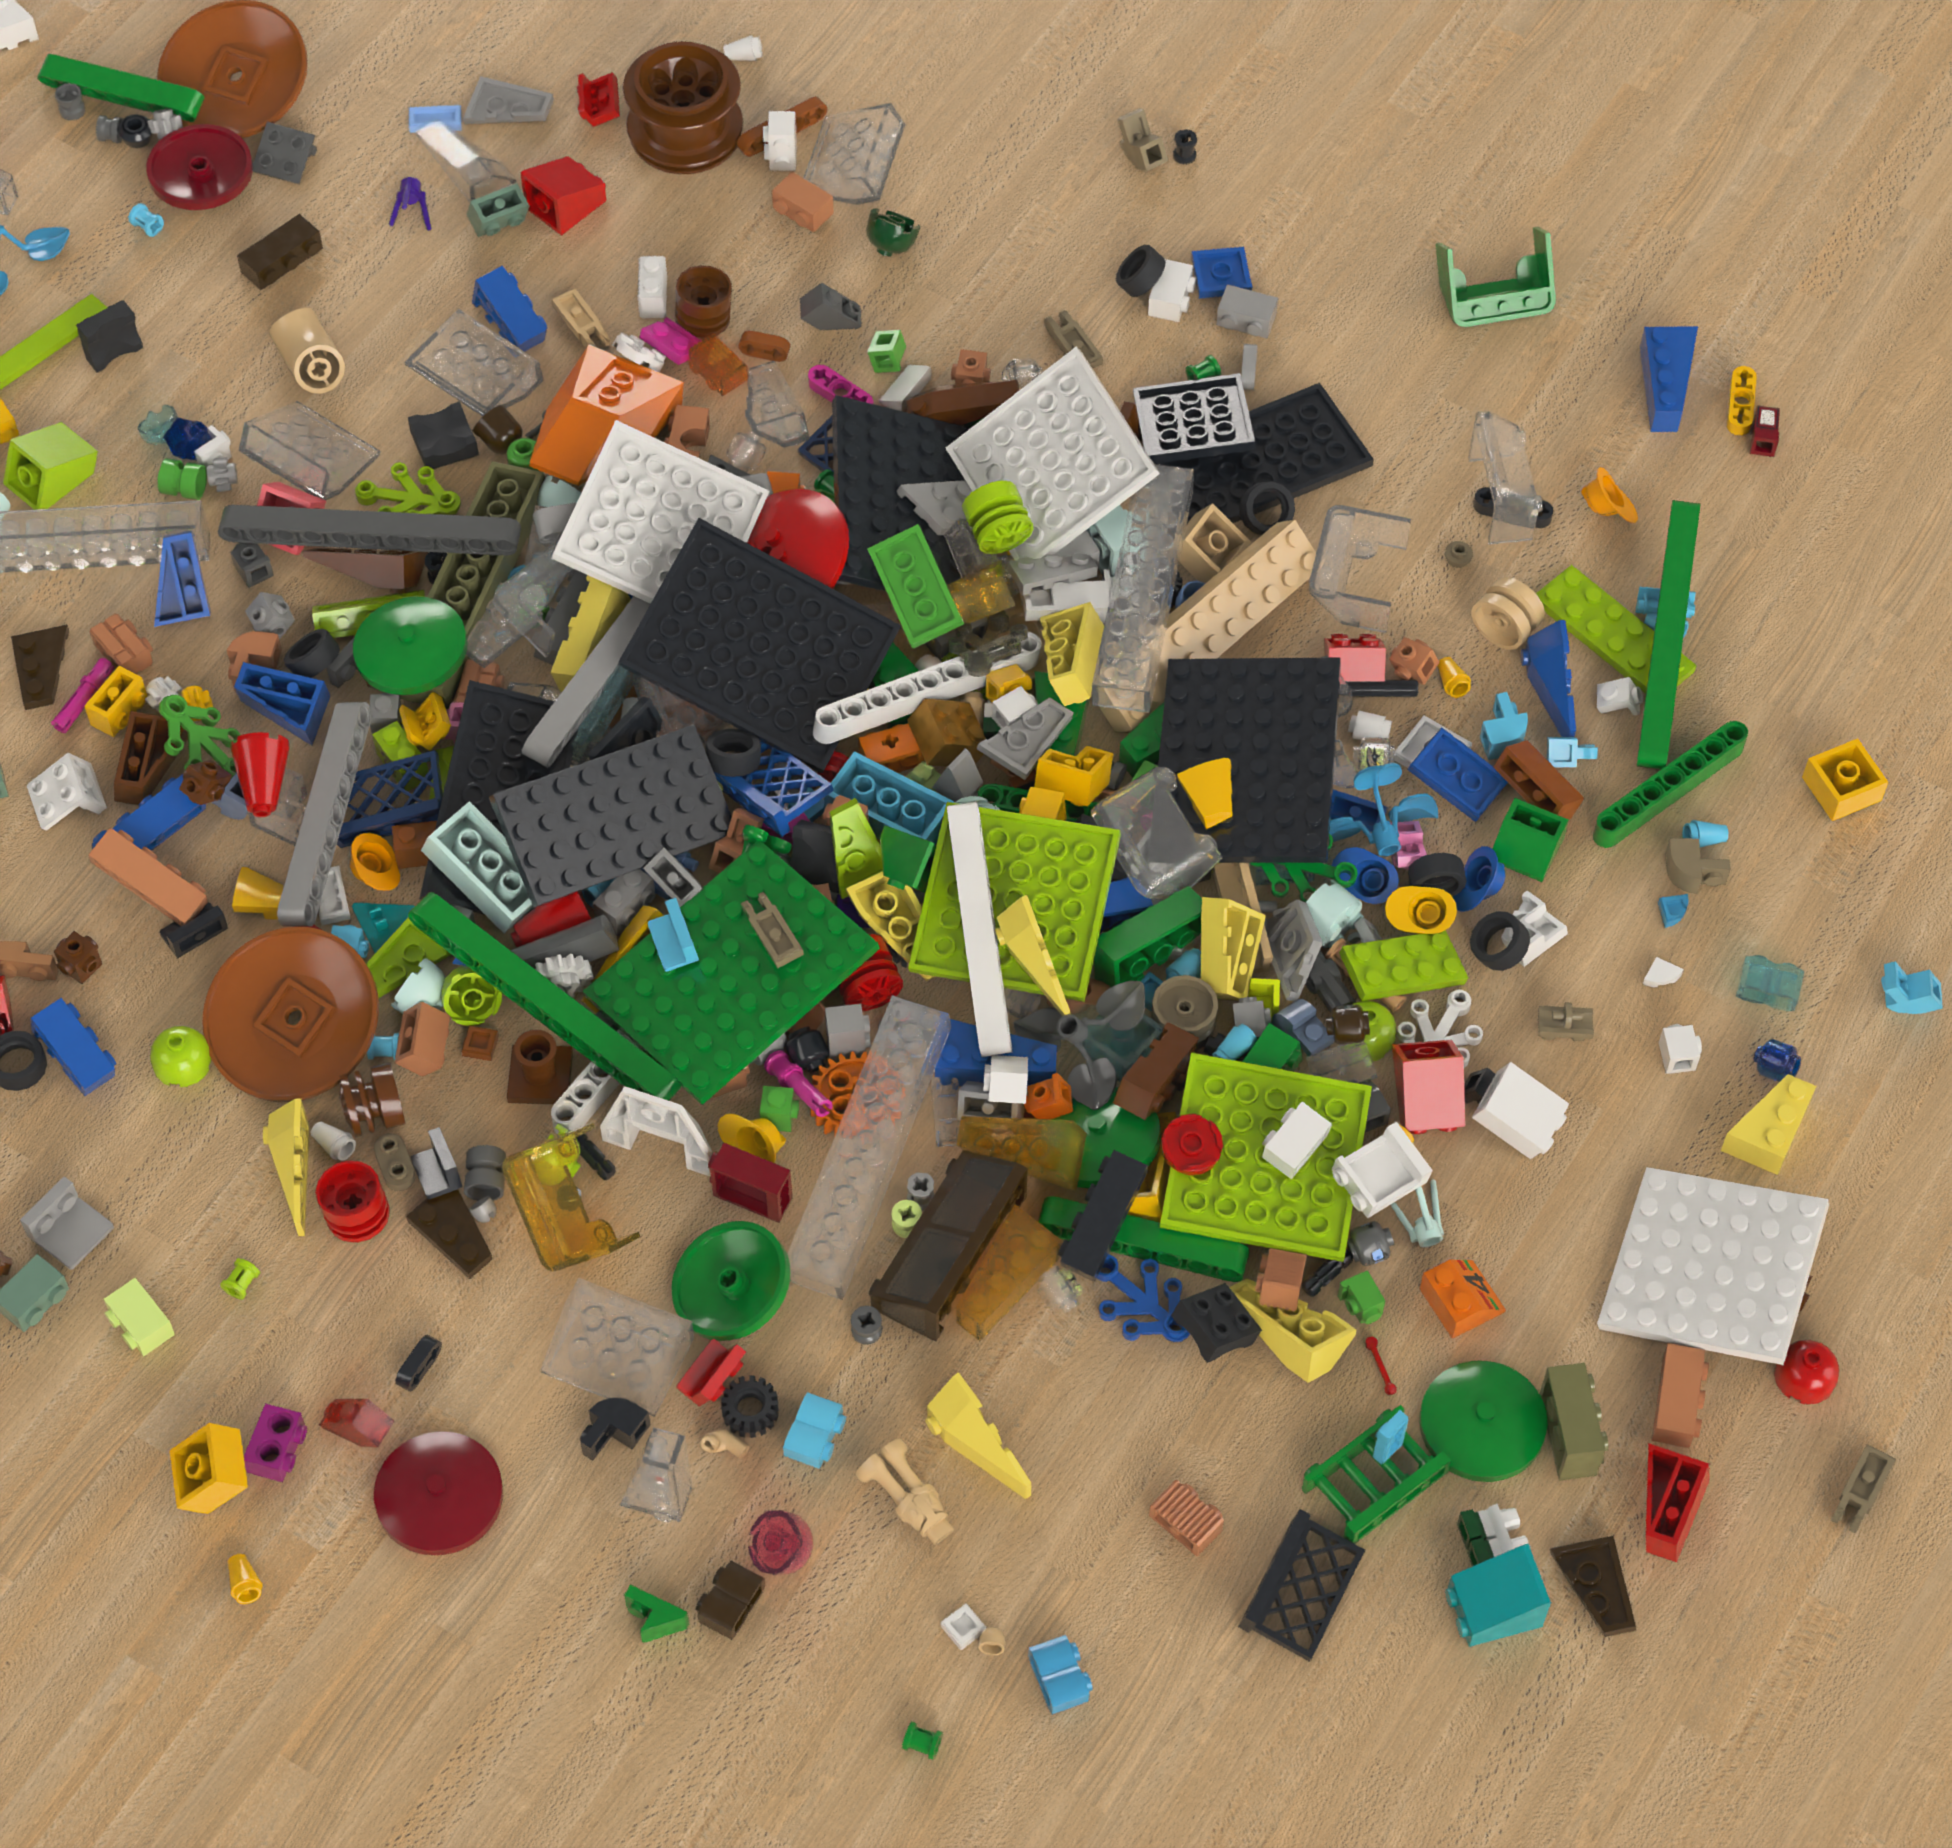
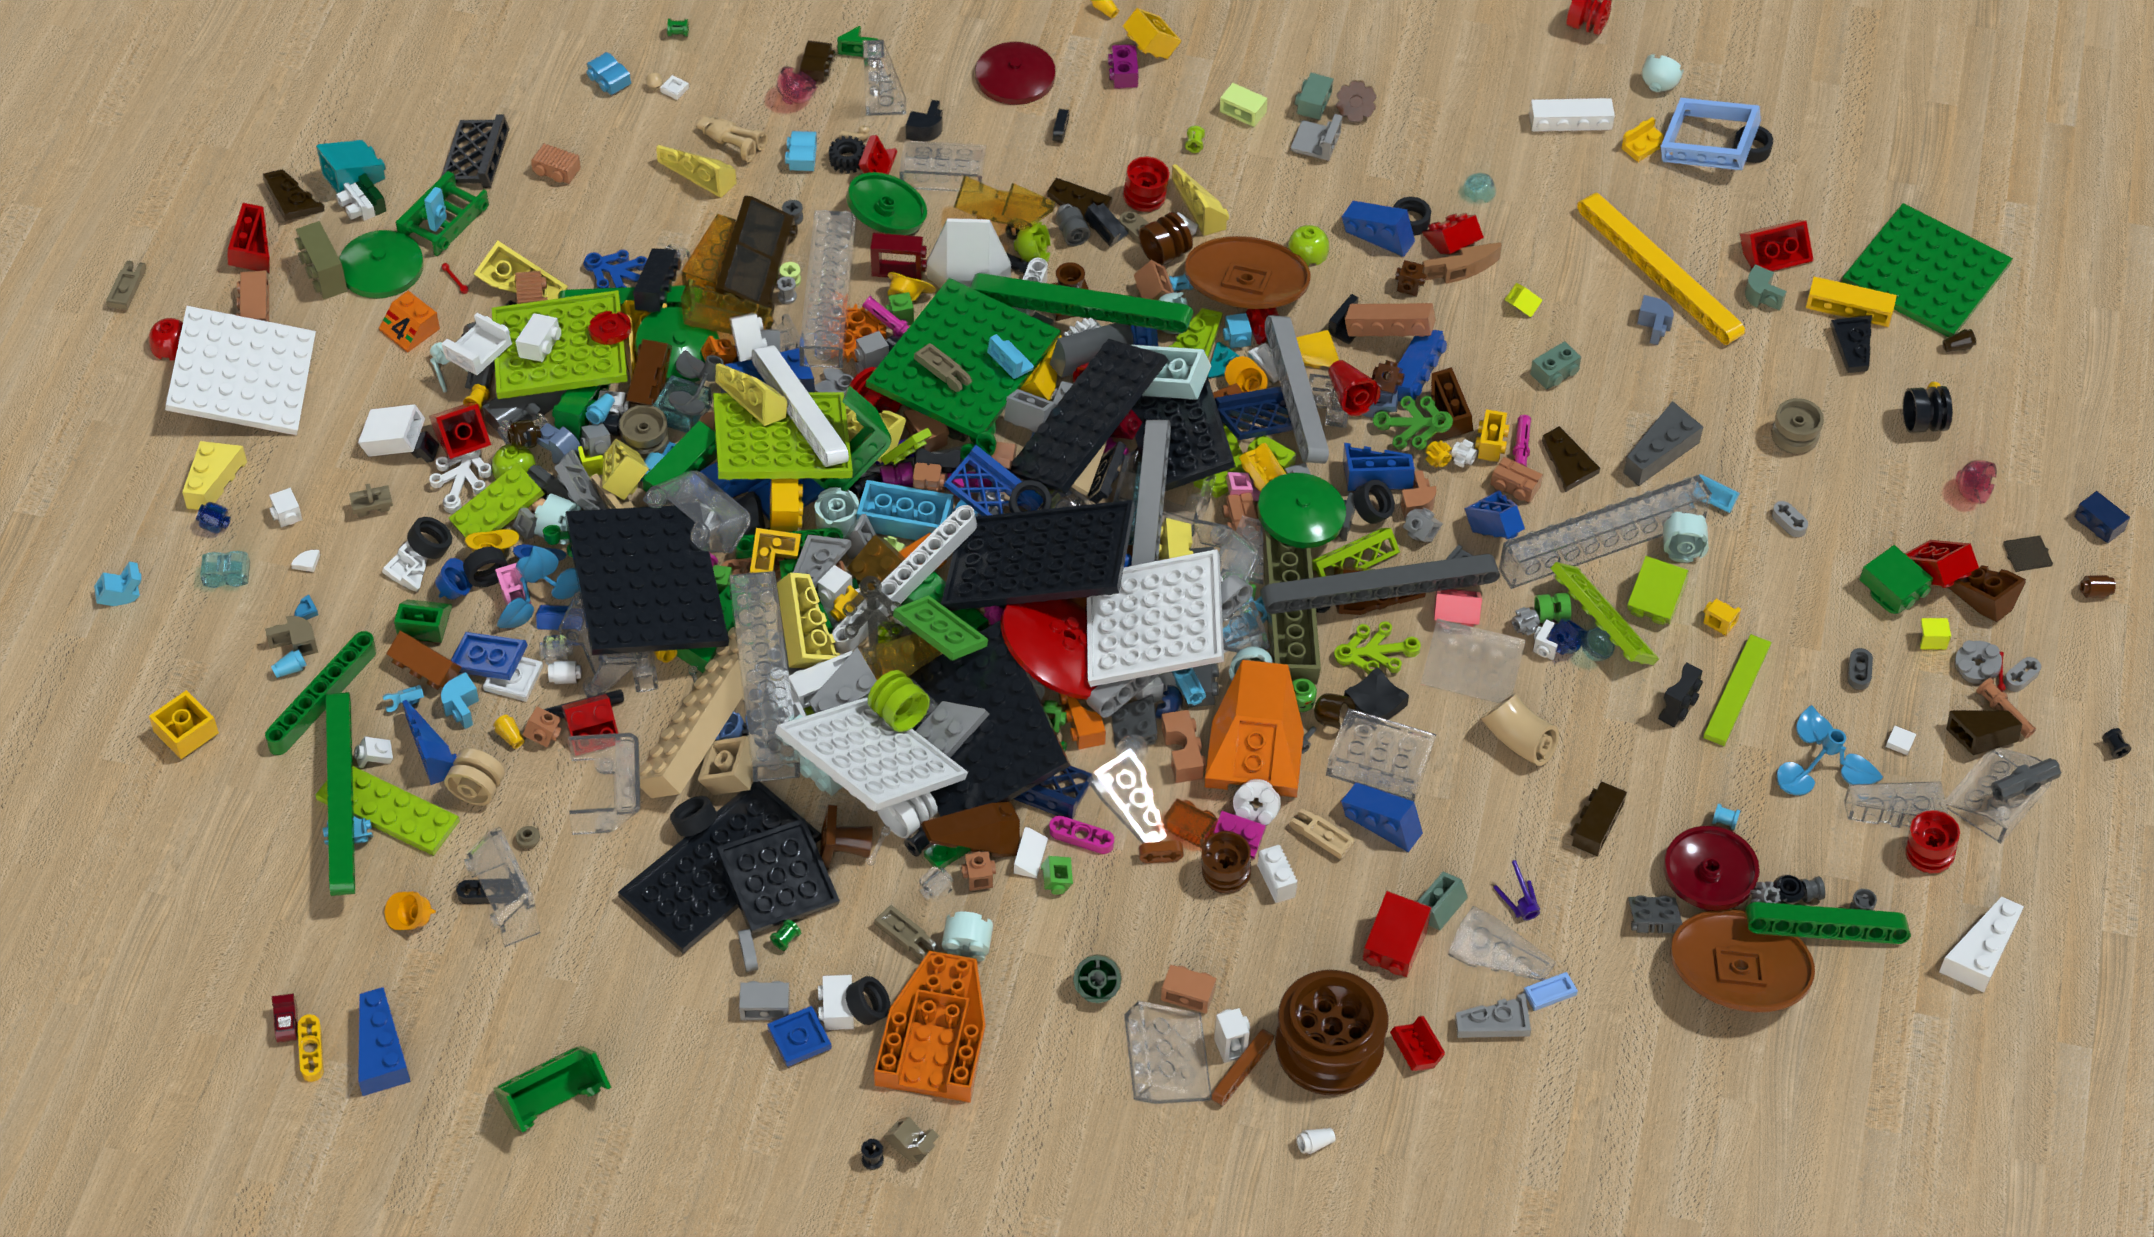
camera: 160 degrees right, 5 degrees down
(64, 788) = (1486, 376): white bracket -> none
(129, 443) = (1606, 616): none -> lime plate
(357, 1421) = (1081, 86): clear red slope -> none
(829, 309) = (1120, 897): dark grey slope -> none
(1011, 305) = (967, 935): none -> light aqua brick
(1078, 229) = (935, 1030): none -> orange wedge
(1209, 790) = (665, 535): yellow slope -> none
(1216, 1321) = (567, 260): black brick -> none
(1362, 1297) = (475, 302): bright green brick -> none

